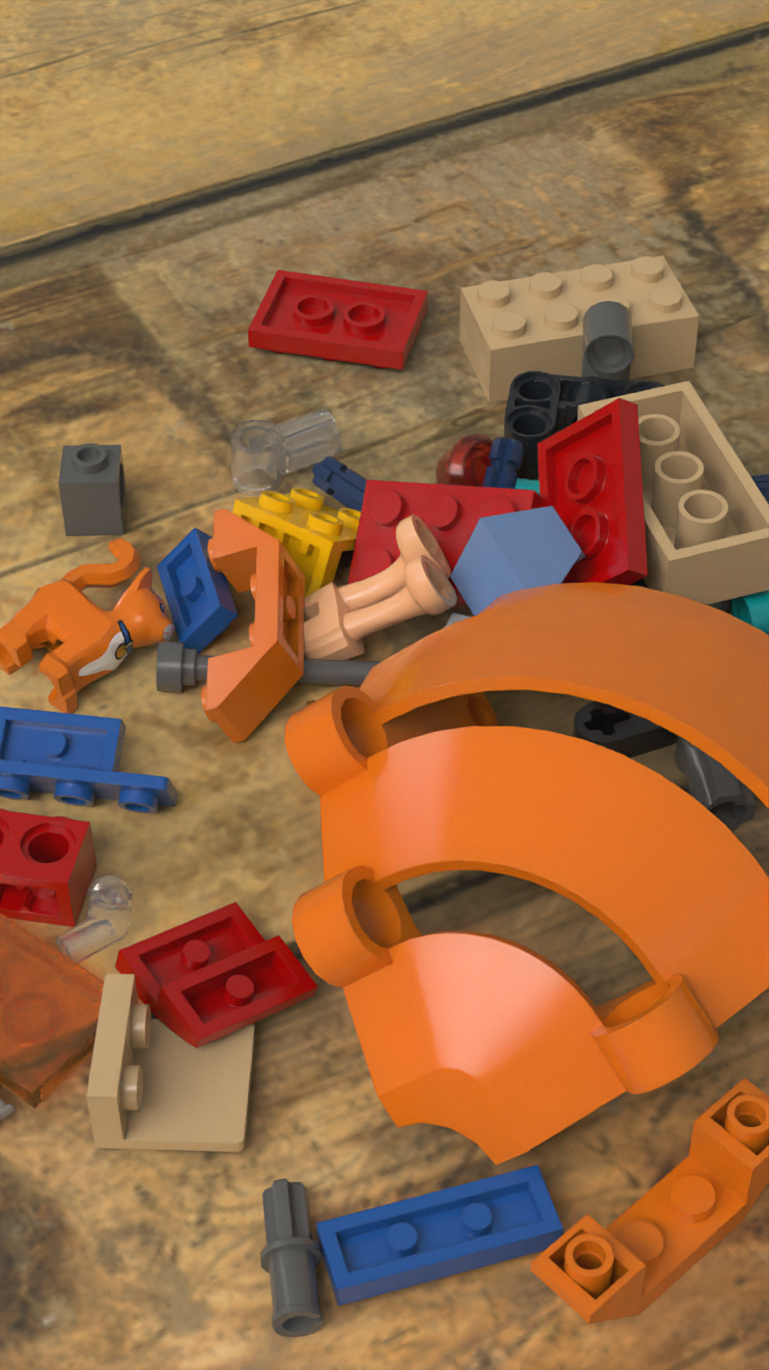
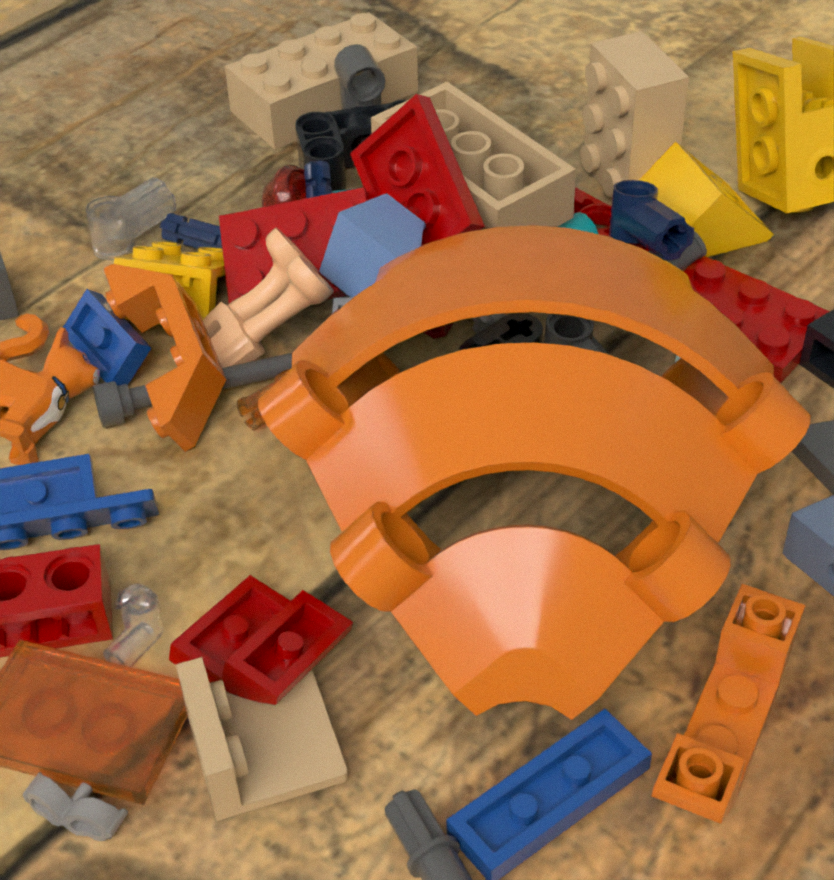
camera: 20 degrees left, 0 degrees up
(338, 319) = (129, 115): red plate -> none

